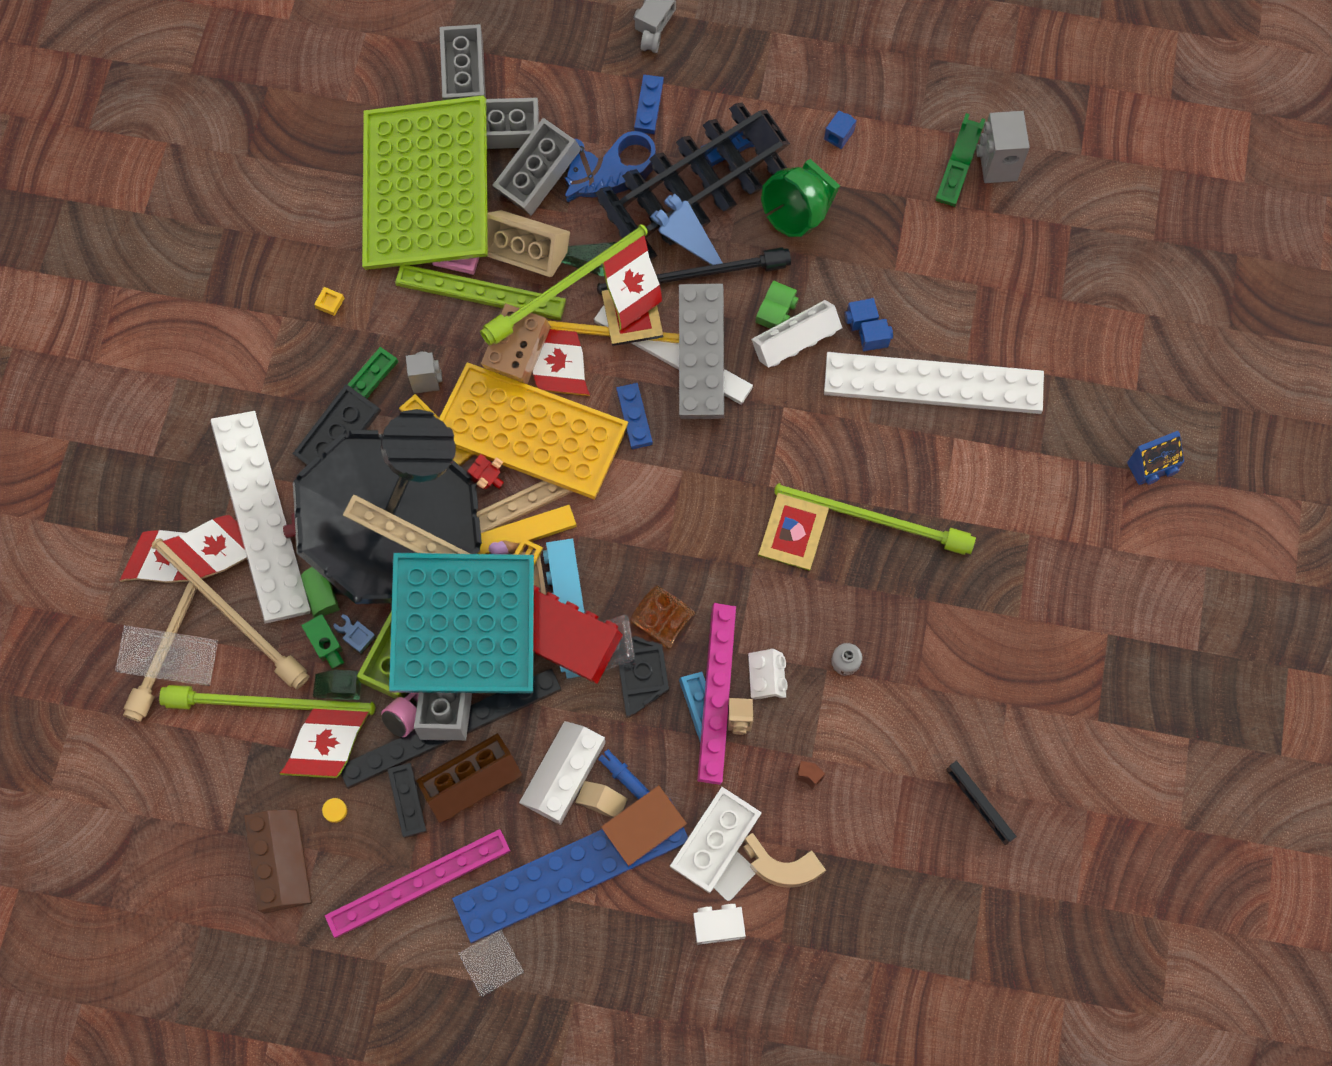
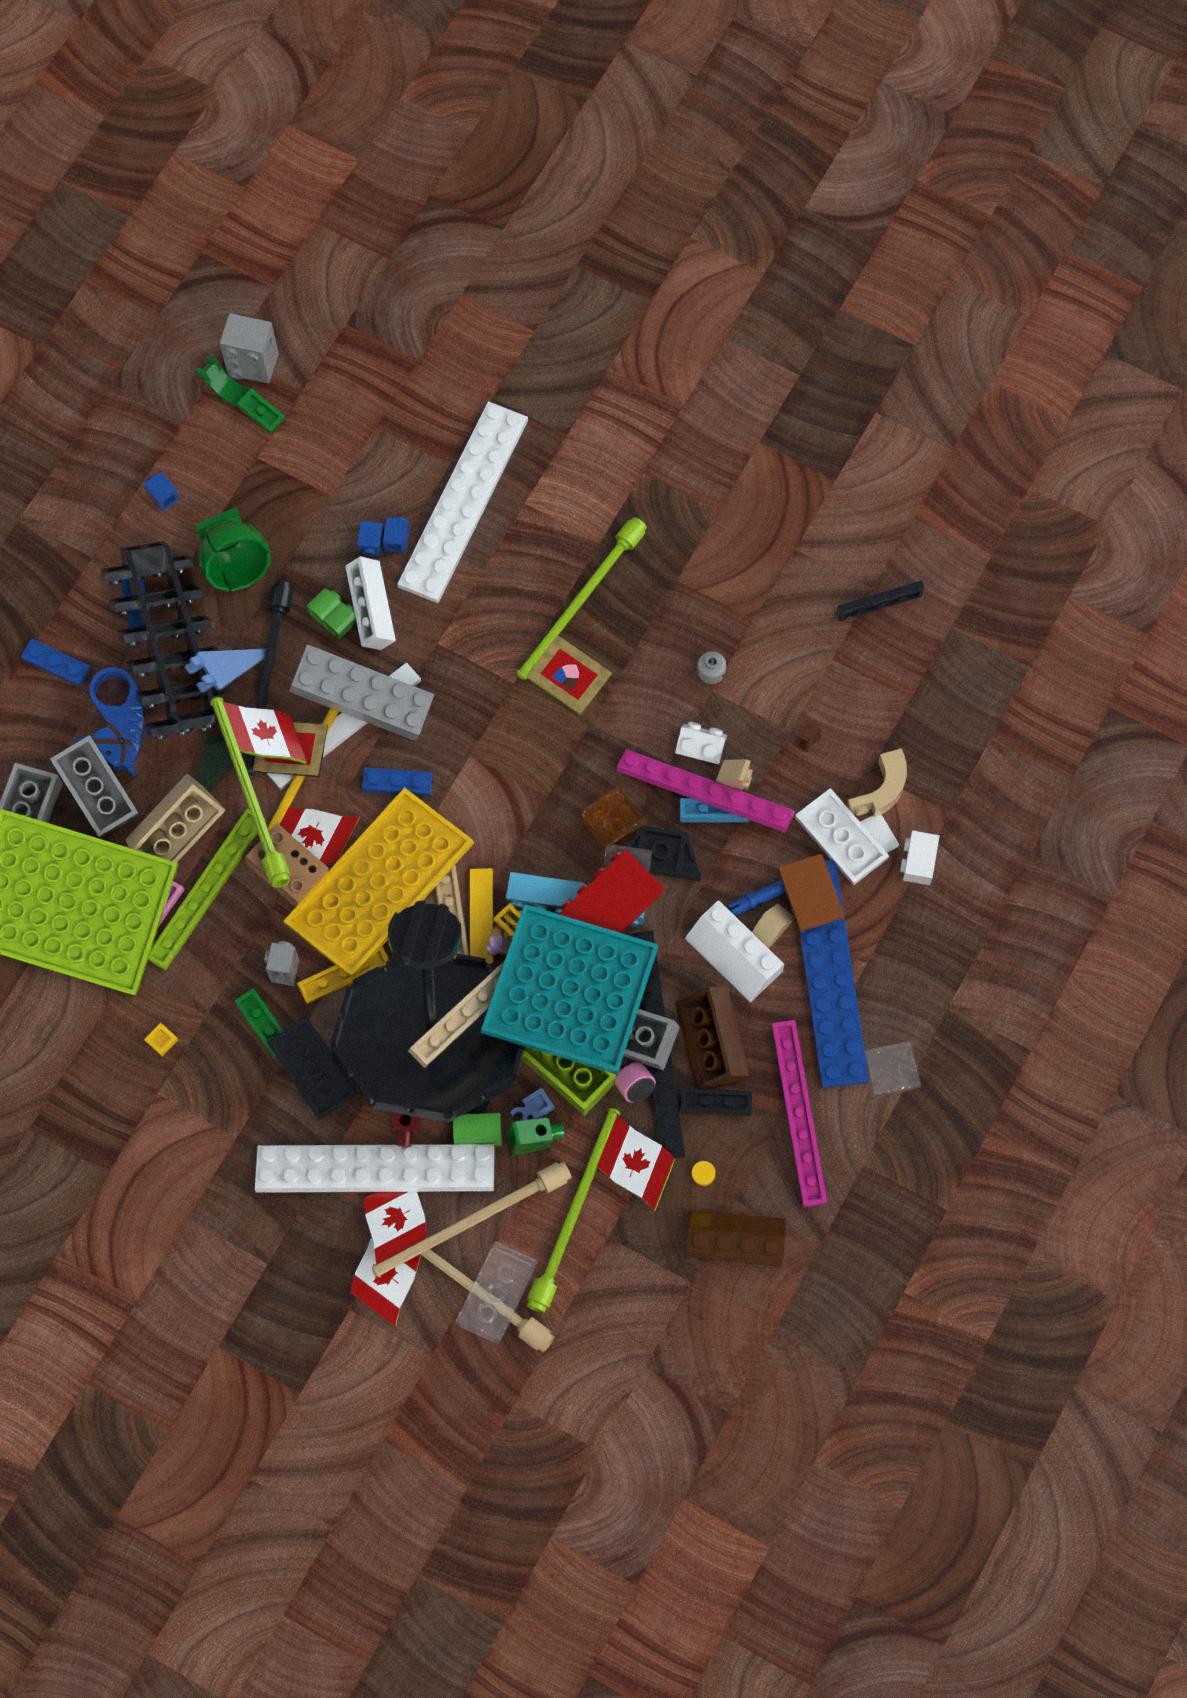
camera: 70 degrees left, 0 degrees up
(337, 685) = (580, 1137): clear green slope -> none
(1157, 459) = (613, 337): slope -> none

